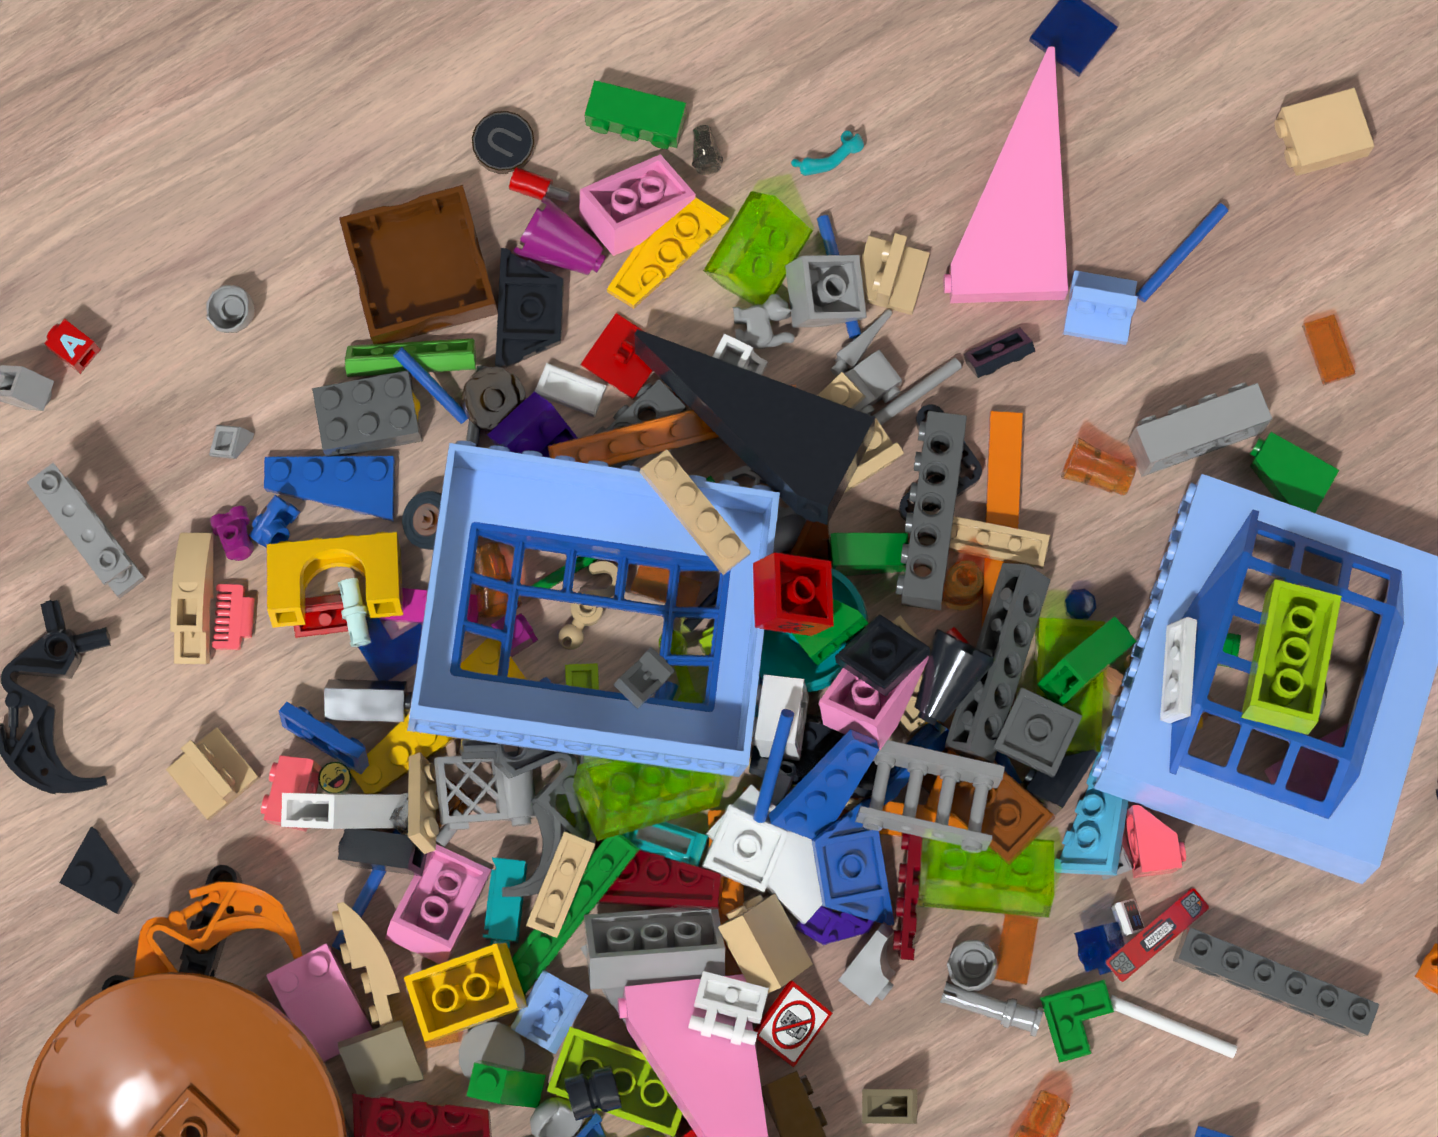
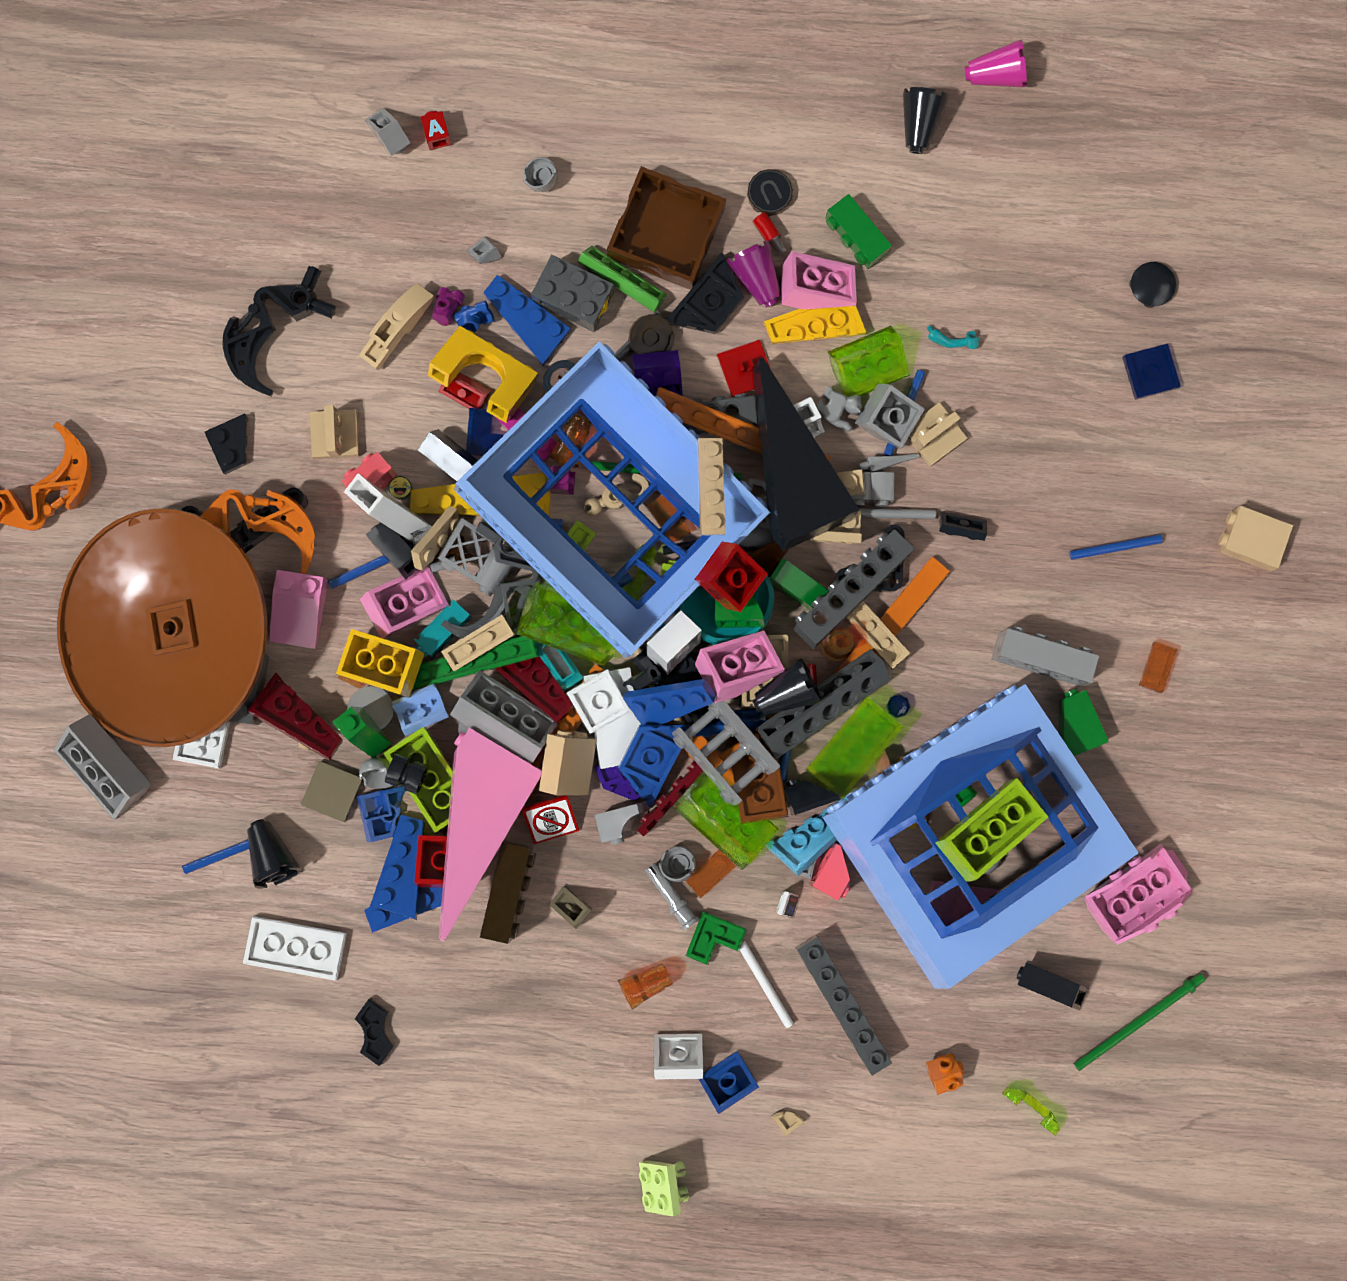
camera: 30 degrees right, 5 degrees up
(86, 530) = (363, 242): light grey fence -> none
(240, 619) = (416, 355): coral piece -> none
(324, 737) = (410, 459): blue plate -> none
(354, 612) = (479, 401): light aqua pin -> none
(365, 950) = (343, 597): tan slope -> none
(380, 1060) = (305, 665): dark tan tile -> none
(430, 384) = (621, 302): blue bar -> none
(570, 390) = (699, 365): white tile -> none
(644, 678) = (607, 560): dark grey bracket -> none
(706, 154) = (882, 283): clear smoke cone -> none
(730, 998) = (523, 779): white plate -> none
(773, 765) = (646, 666): blue bar -> none
(882, 655) = (758, 650): black tile -> none
(1018, 228) = (1029, 462): bright pink slope -> none
(1037, 732) = (814, 761): dark grey plate -> none
(1086, 662) = (873, 742): green slope -> none
(1097, 468) = (968, 635): clear orange plant -> none
(1098, 945) = (758, 910): clear blue brick -> none
(1100, 307) = (1042, 543): light blue bracket -> none
(1157, 935) = (795, 927): sticker -> none
(1178, 670) = (920, 787): white tile -> none

